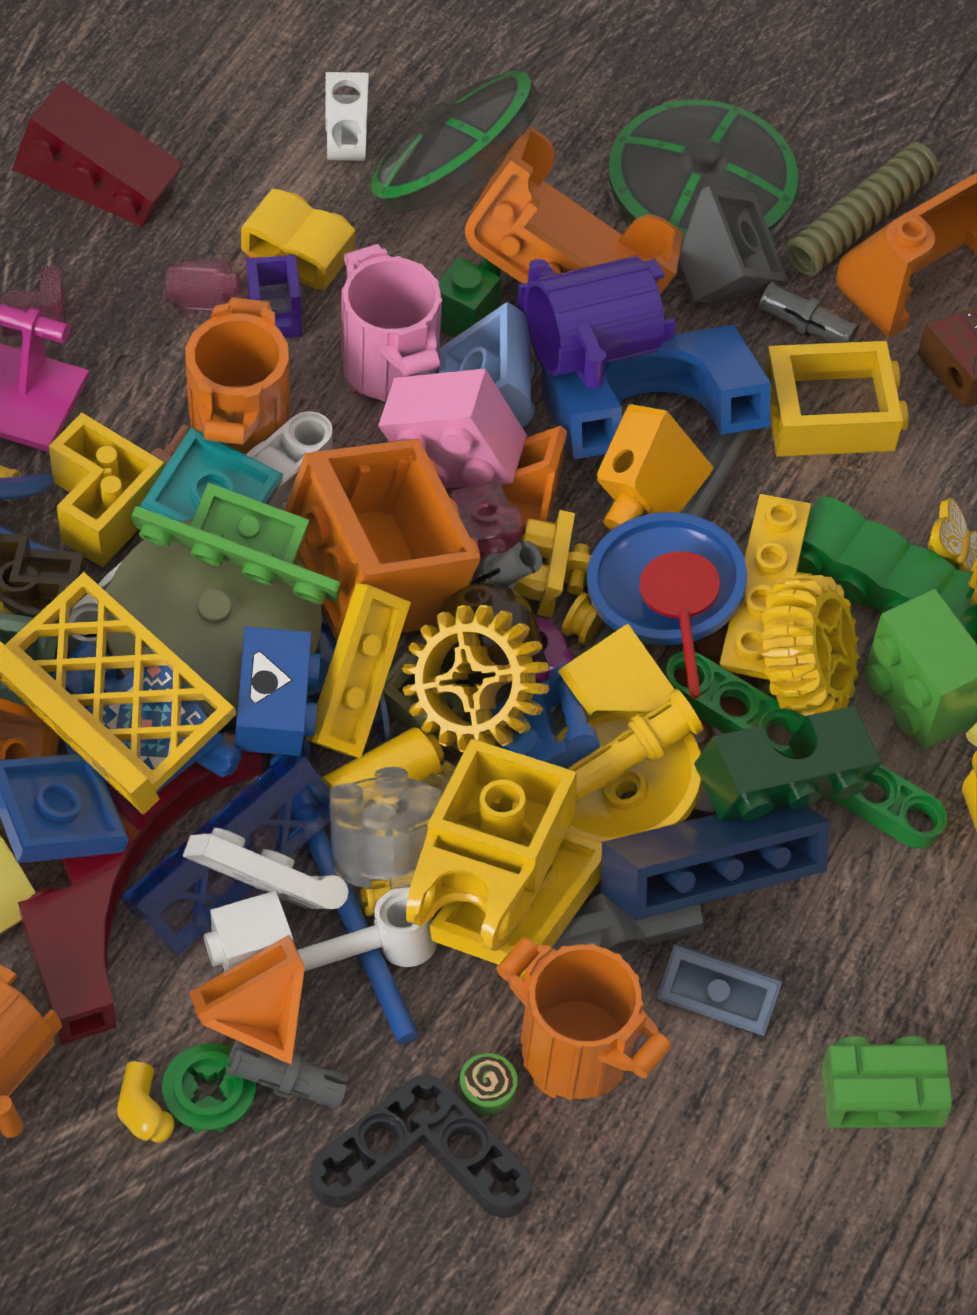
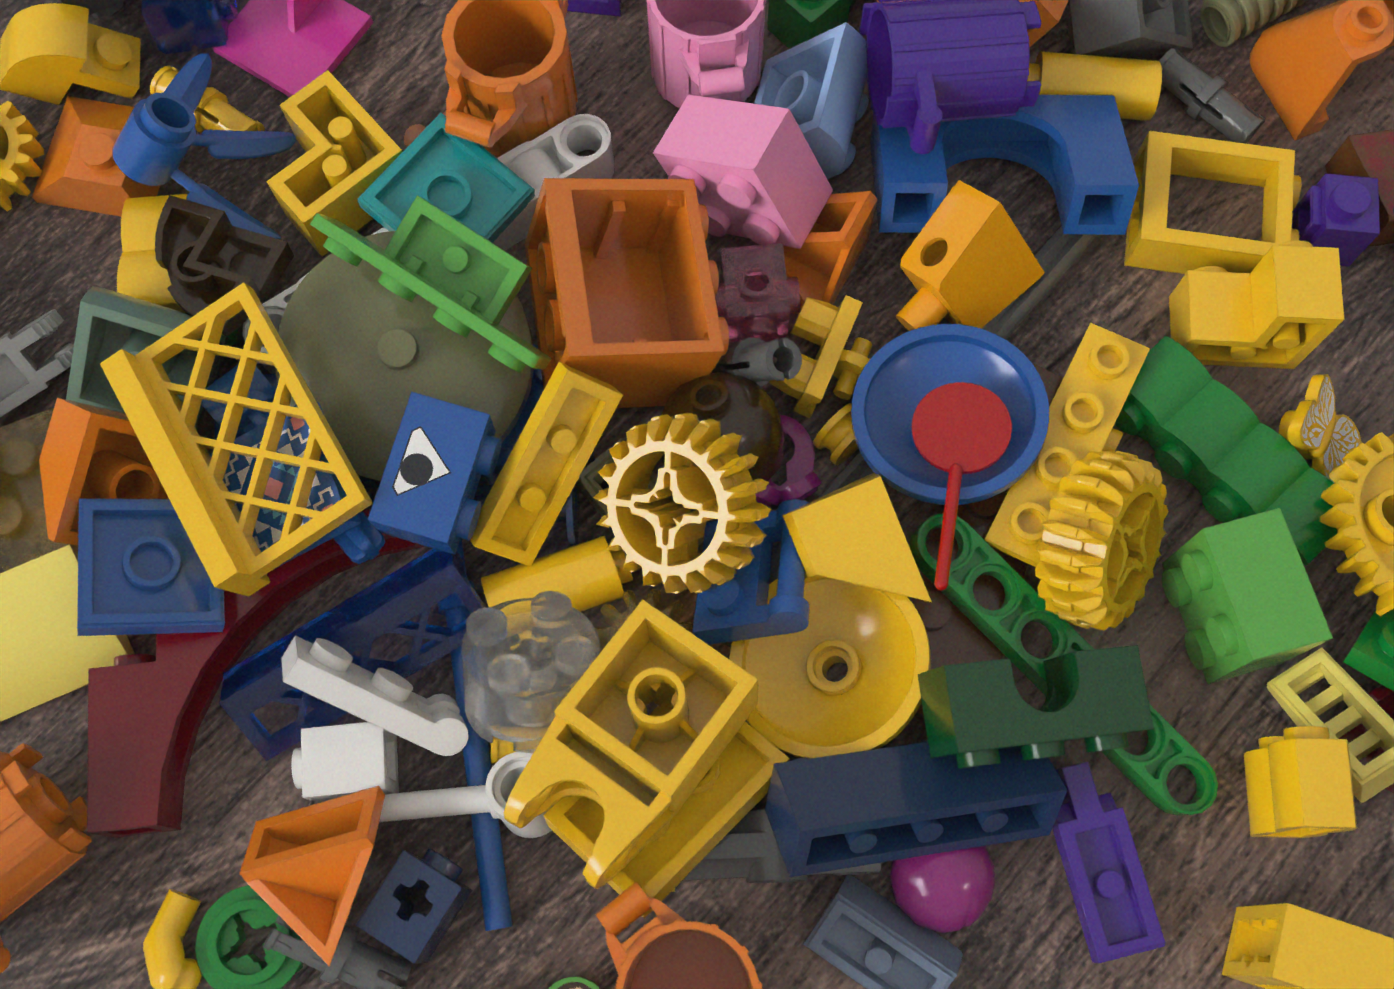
camera: 20 degrees right, 15 degrees up
(337, 1047) = (389, 911): none -> dark blue brick
(644, 739) = (862, 630): yellow pin -> none
(746, 312) = (1131, 81): none -> yellow brick
(752, 926) = (944, 888): none -> magenta hair
(875, 891) = (1104, 871): none -> dark purple hinge
(895, 468) = (1262, 315): none -> yellow brick
(932, 389) = (1340, 215): none -> dark purple window

